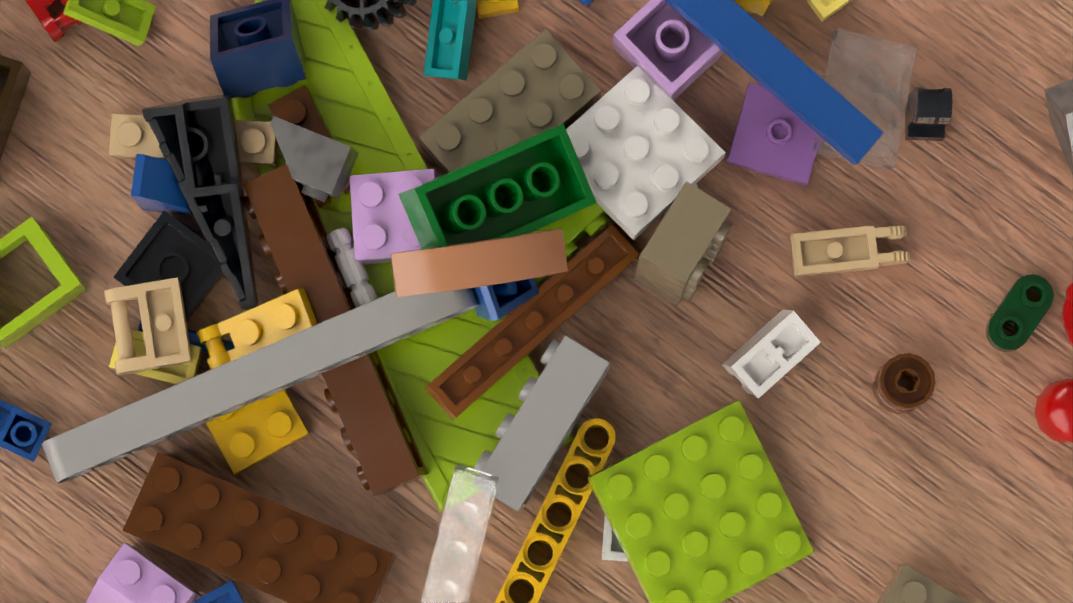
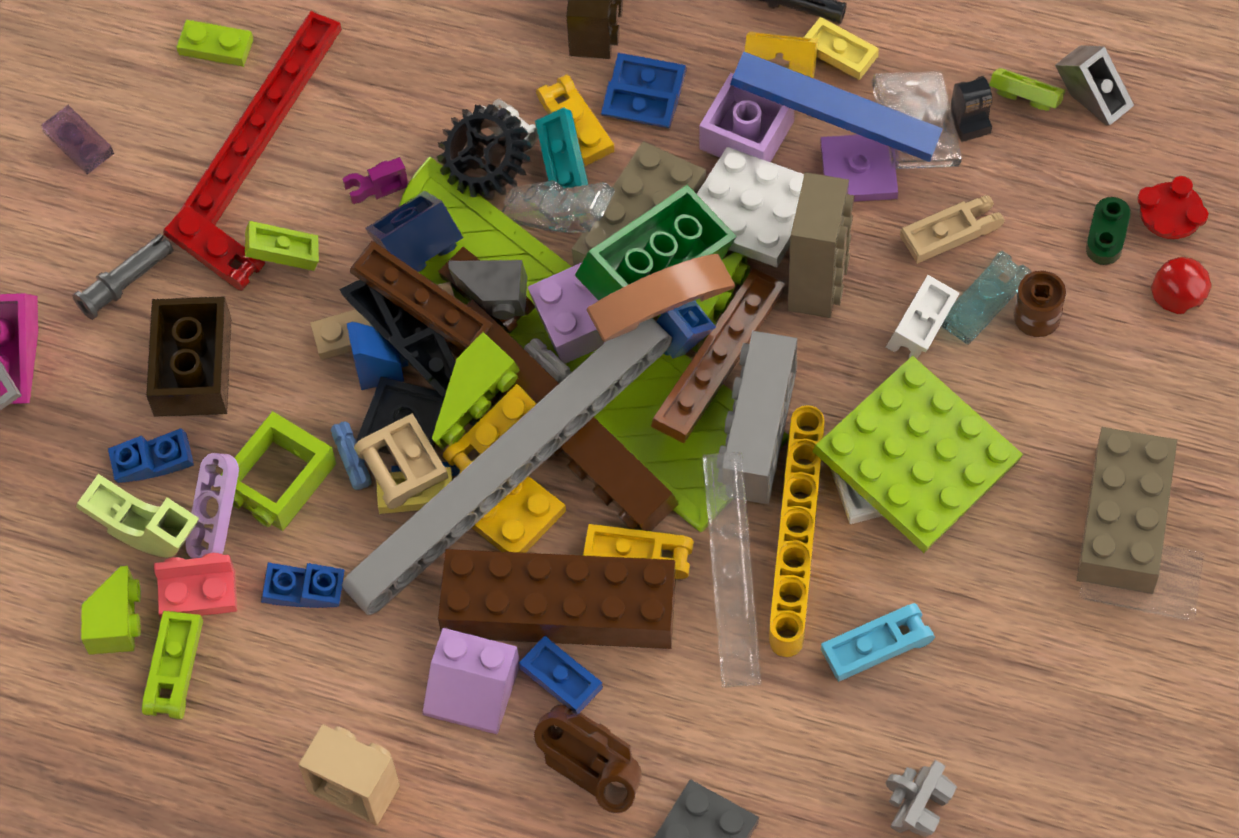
camera: 15 degrees left, 20 degrees down
(102, 279) = (354, 466): none -> medium blue axle
(227, 151) = (419, 296): none -> reddish brown tile
(253, 267) = (474, 381): none -> lime slope
(363, 513) = (634, 543): none -> yellow plate
(422, 76) = (558, 208): none -> clear slope
(852, 347) = (984, 298): none -> clear light blue plate
(1002, 105) = (1039, 93): none -> lime plate

